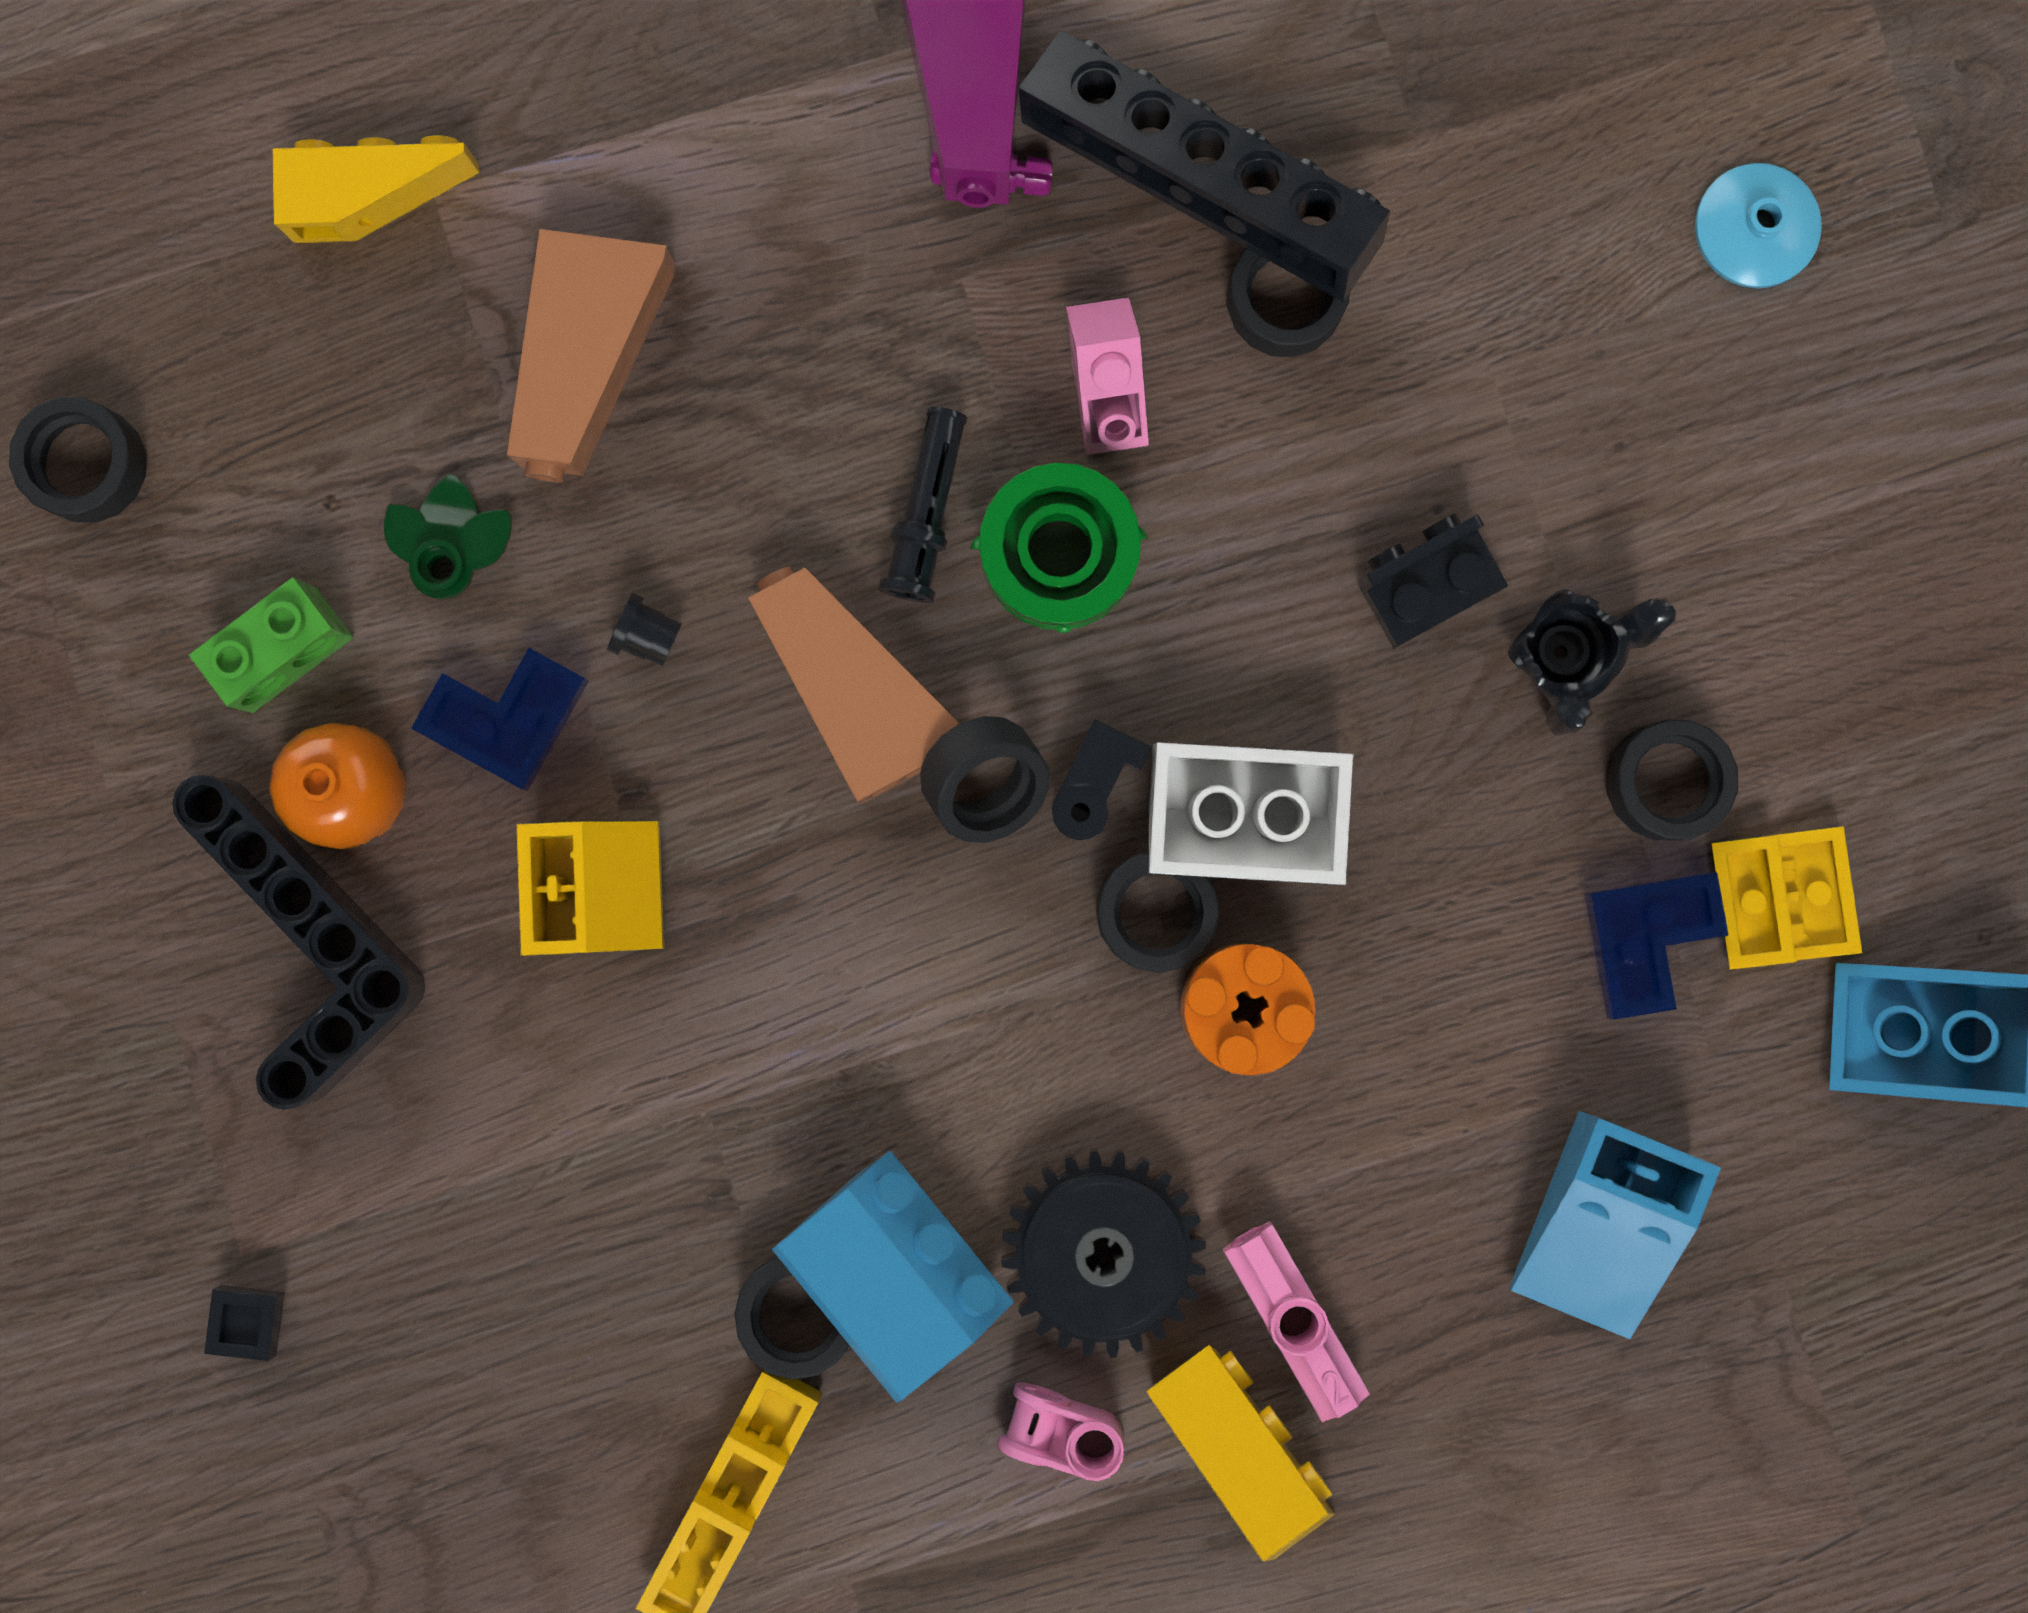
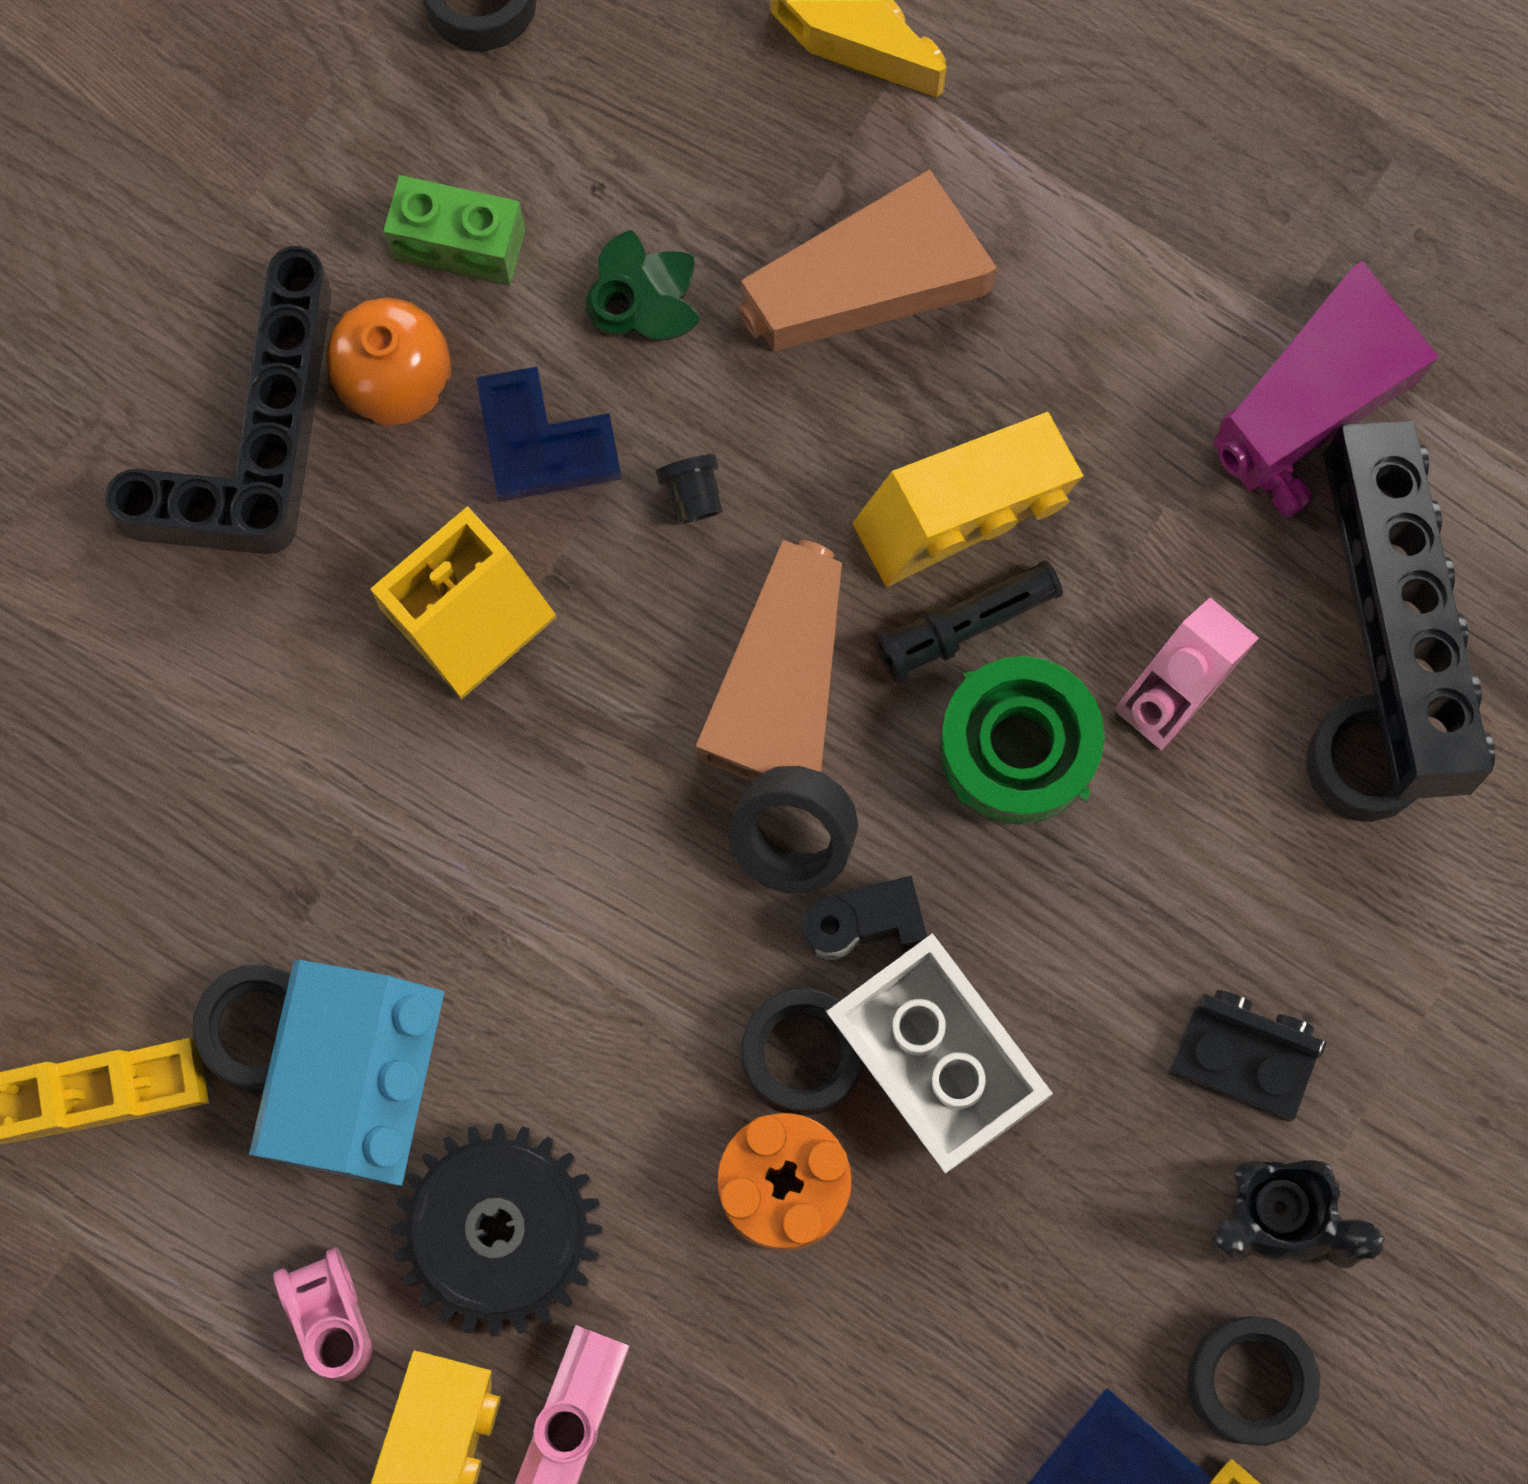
camera: 50 degrees right, 10 degrees down
(829, 425) = (966, 496): none -> yellow wedge

